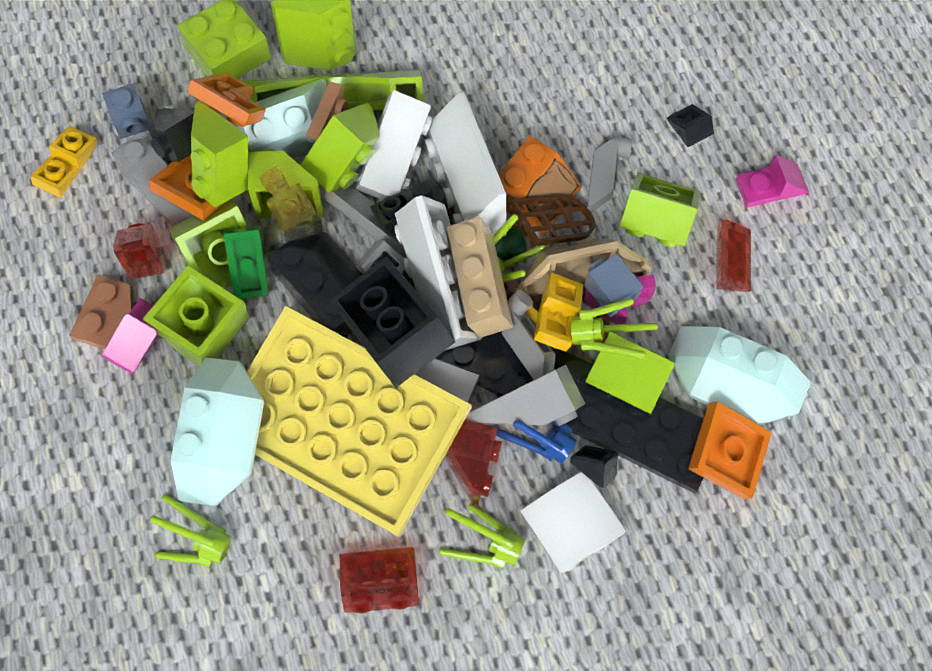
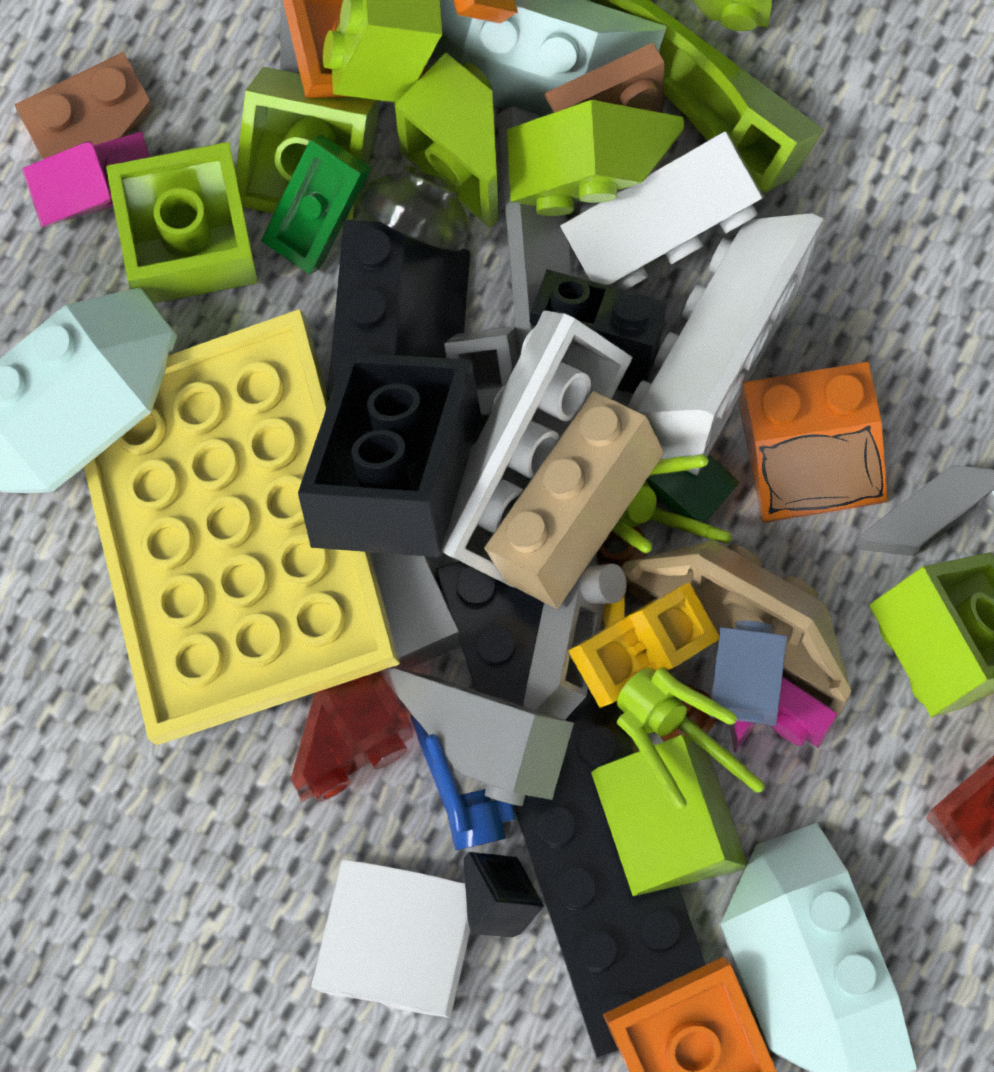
camera: 50 degrees right, 5 degrees up
(139, 251) = (199, 63): clear red slope -> none
(288, 203) = (423, 175): clear yellow plate -> none
(378, 580) = (81, 774): clear red bracket -> none
(505, 541) = (275, 883): lime plant -> none
(578, 206) = (774, 491): reddish brown window -> none

